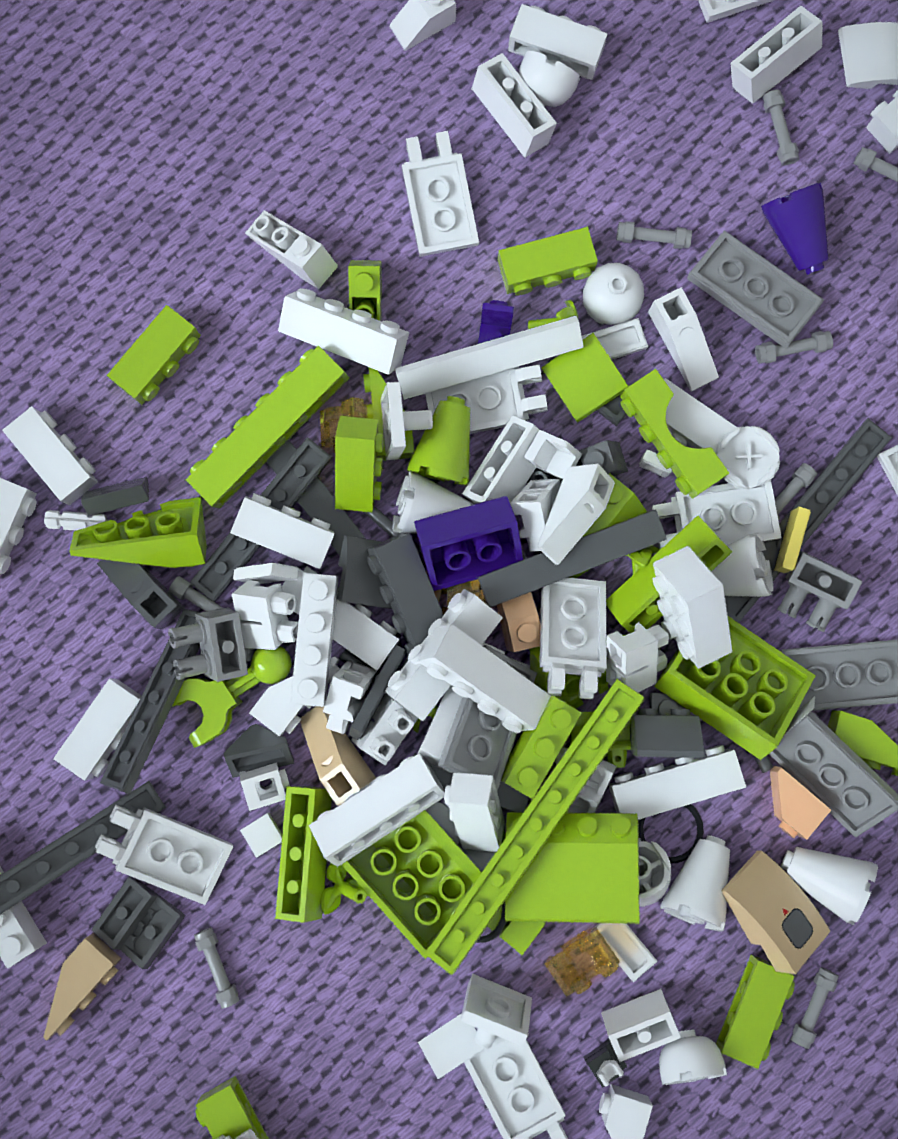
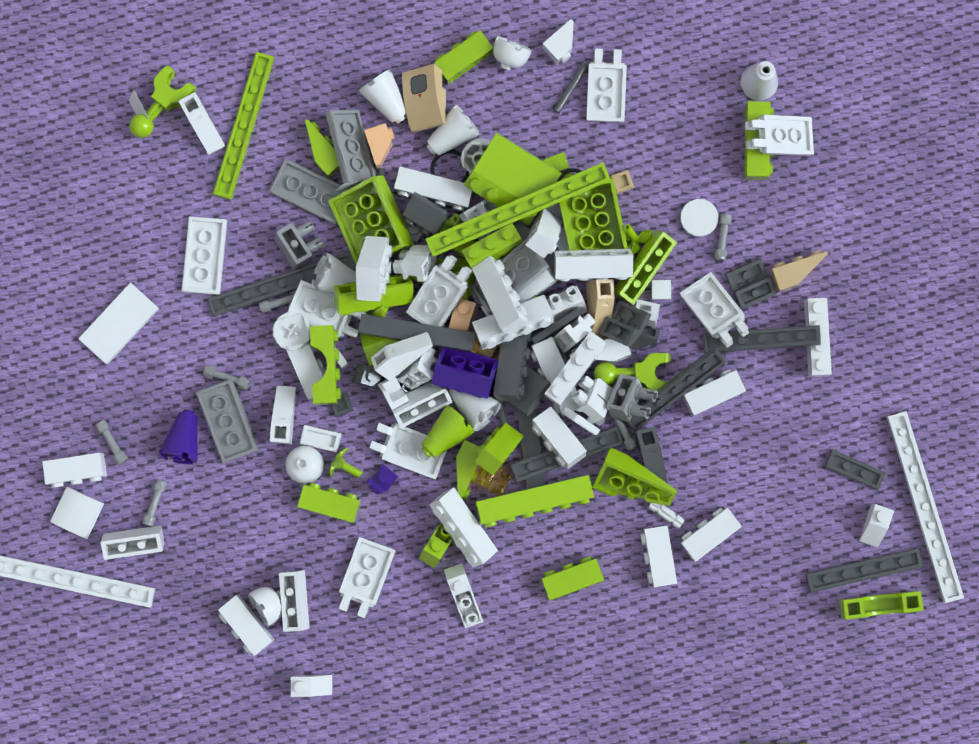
camera: 145 degrees left, 0 degrees up
(116, 496) = (636, 513): dark grey slope -> none
(267, 976) = (699, 217): none -> white tile
(281, 750) = (625, 324): none -> dark grey slope
(397, 422) = (465, 456): white tile -> none
(410, 963) = (622, 182): none -> tan tile
(450, 1046) = (625, 130): white sticker -> none
(490, 357) = (394, 466): white tile -> none
(496, 1012) = (593, 133): white tile -> none
(570, 1061) = (570, 88): none -> dark grey bar
(582, 960) = (535, 132): clear yellow cylinder -> none
(585, 378) = (348, 427): lime slope -> none
(605, 1064) = (553, 76): pearl dark grey piece -> none
(628, 948) = (509, 124): white tile -> none
(640, 1025) = (525, 84): white brick -> none
(679, 238) = (248, 474): light grey bar -> none
(792, 540) = (295, 275): light yellow tile -> none
(804, 1034) = (445, 32): light grey bar -> none

